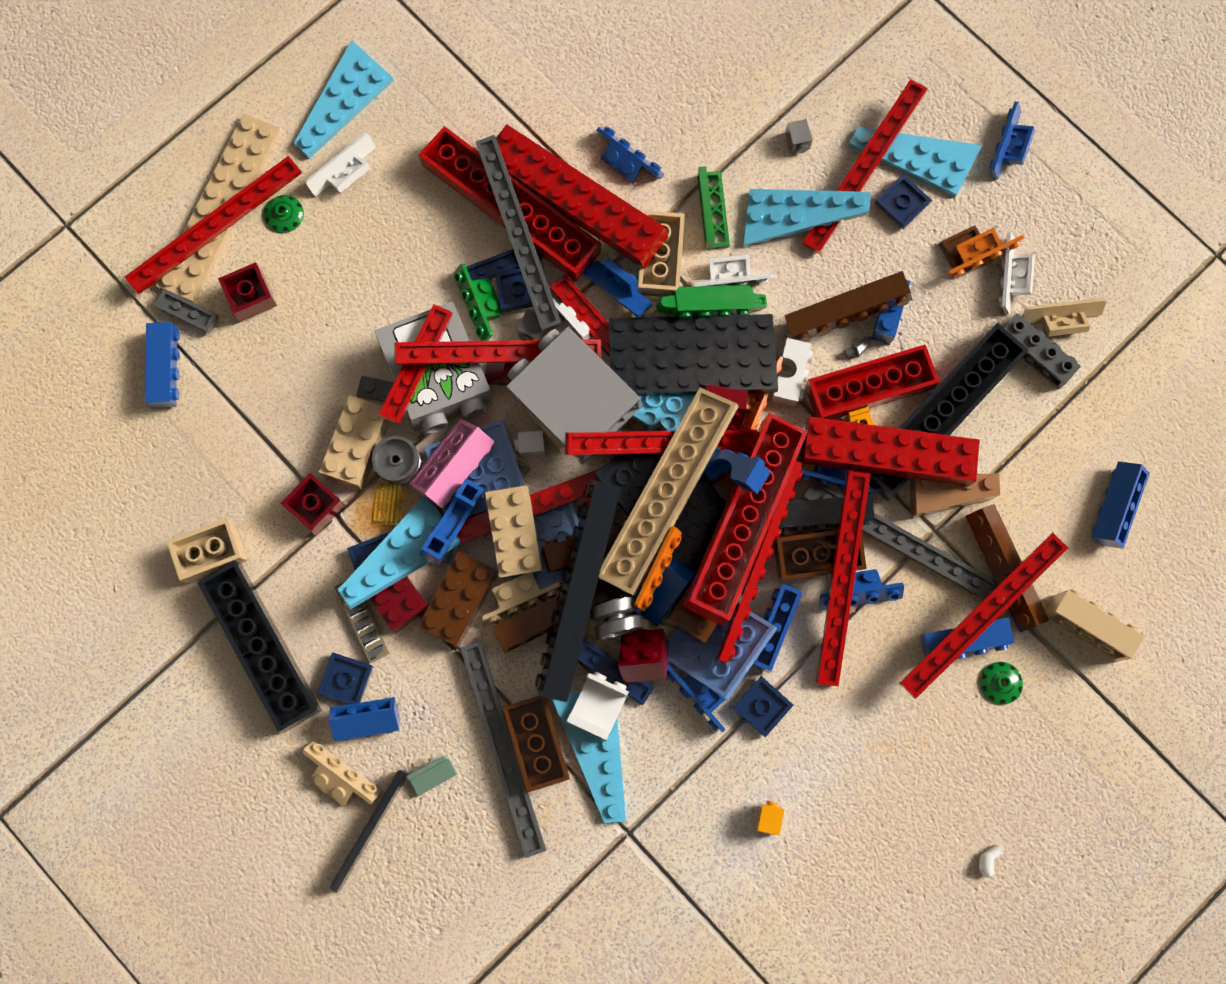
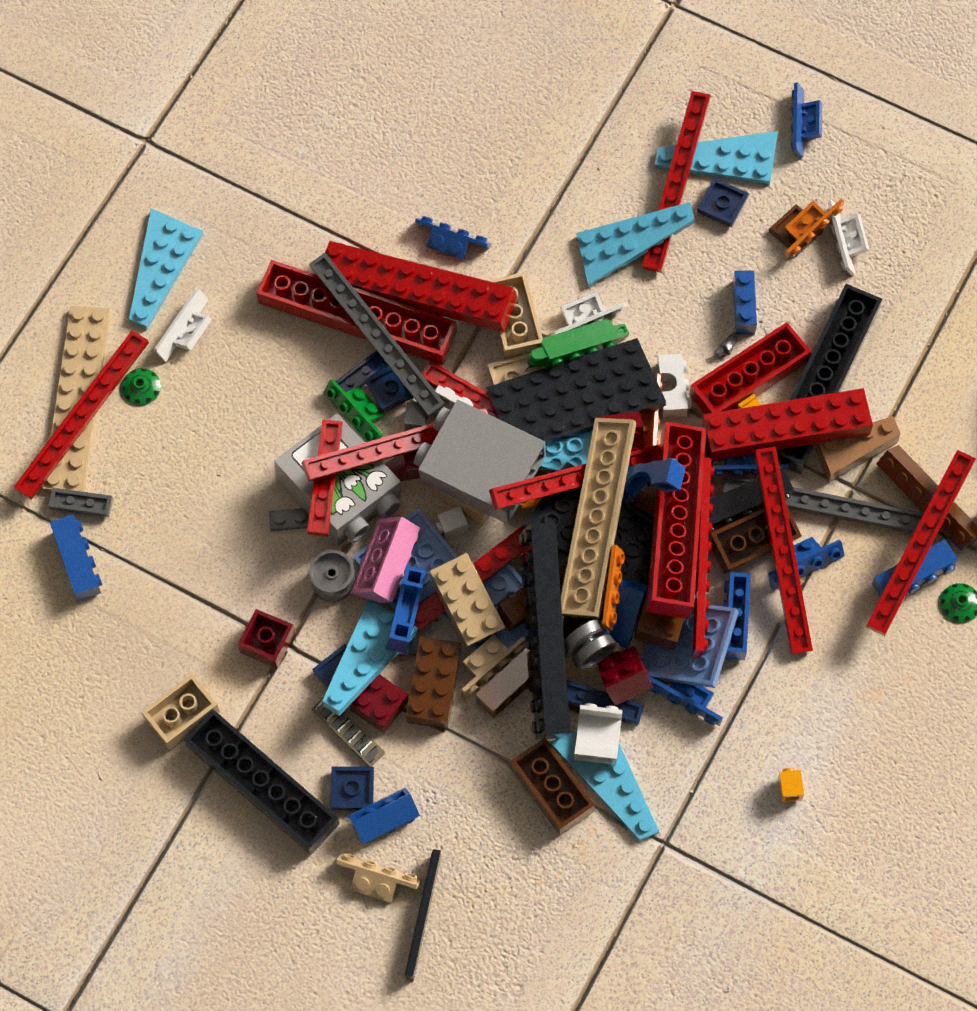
camera: 15 degrees left, 10 degrees down
(247, 291) = (135, 466): dark red brick -> none
(353, 443) = (286, 572): tan brick -> none
(387, 505) = (336, 619): clear yellow brick -> none
(432, 775) = (463, 847): sand green panel -> none
(503, 749) = (522, 803): dark grey plate -> none
(618, 285) = (485, 354): blue bracket -> none
(707, 207) = (544, 263): green fence -> none
(763, 706) = (749, 690): dark blue plate -> none
(798, 136) = (605, 172): brick -> none
(849, 307) = (705, 310): reddish brown brick -> none
(1043, 354) = (897, 300): dark grey brick -> none
(1066, 316) = (905, 261): tan bracket -> none

